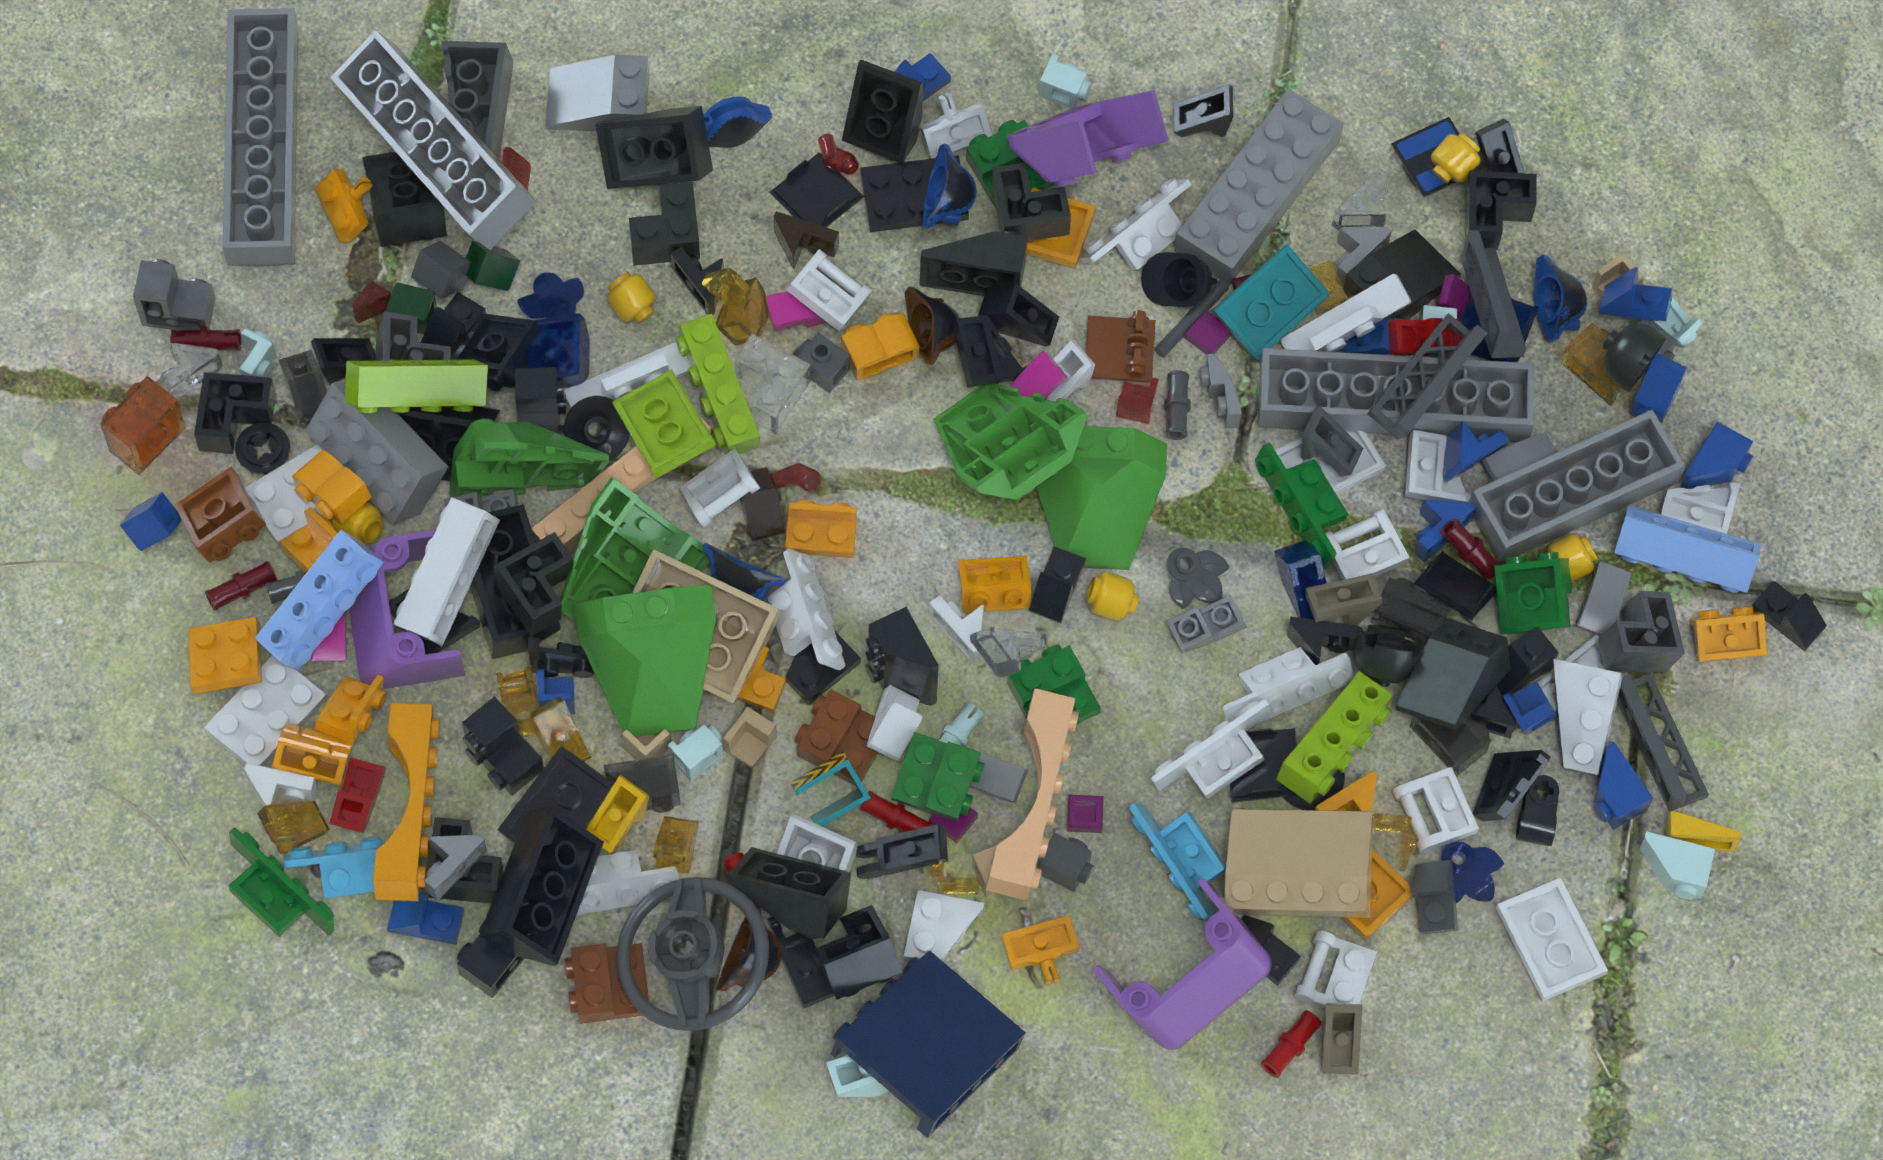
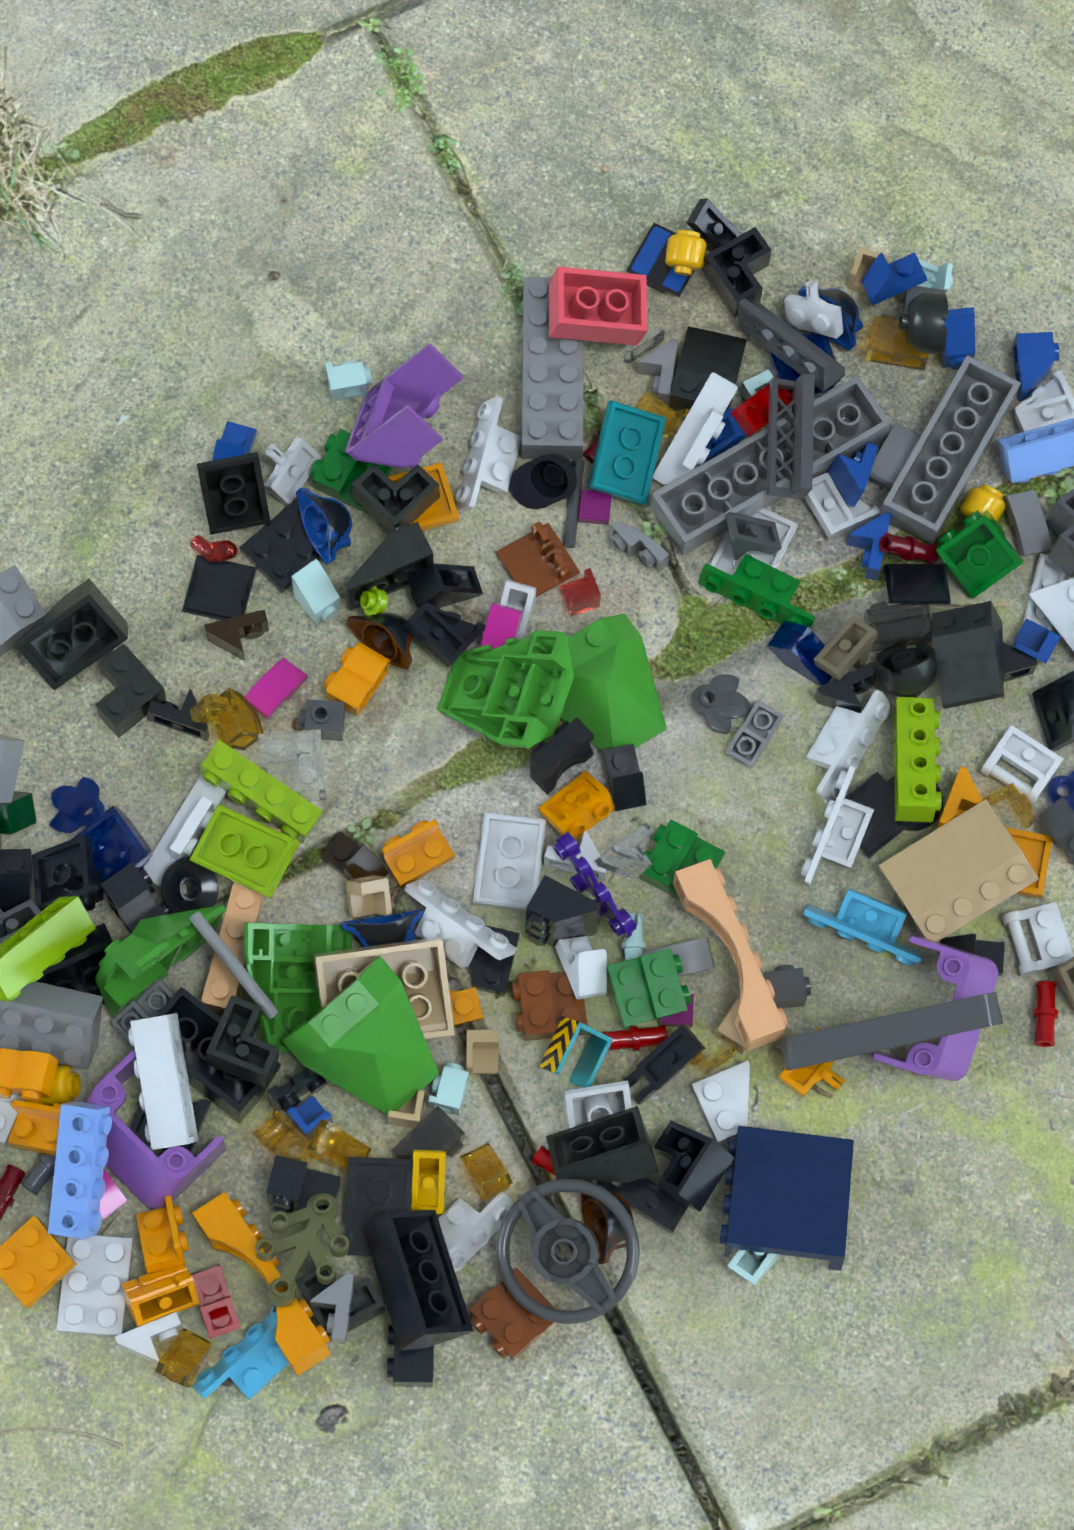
camera: 35 degrees left, 5 degrees up
(271, 892) = (207, 1424): green bracket -> none
(426, 920) = (342, 1363): blue slope -> none
(462, 789) = (303, 1243): none -> olive plant
(576, 508) = (234, 965): none -> light grey piece
(631, 298) = (139, 766): yellow head -> none
(725, 476) = (312, 868): white plate -> none
(734, 121) = (116, 572): hat -> none
(747, 537) = (369, 896): none -> tan panel
(798, 475) = (368, 821): clear red arm -> none
(825, 296) = (288, 667): white plate -> none
(896, 246) = (316, 593): none -> light aqua slope
(904, 578) = (509, 861): none -> white tile
(941, 285) = (374, 601): none -> lime plate
(954, 701) = (619, 920): none -> dark purple plant
(1010, 524) = (563, 751): none -> black brick
(1085, 813) = (770, 940): magenta tile -> none
(1111, 596) = (672, 759): yellow head -> none
(1126, 953) = (891, 1031): none -> dark grey beam
(1177, 405) = (612, 578): dark grey pin -> none
(1205, 111) = (472, 333): black slope -> none
(1332, 151) = (597, 306): none -> coral brick
(1371, 556) = (838, 601): white plate -> none
(1454, 747) = (1002, 710): clear smoke slope -> none
(1455, 295) = (756, 359): magenta tile -> none
(1529, 659) = (1009, 602): black slope -> none
(1536, 285) = (813, 313): none -> white plate

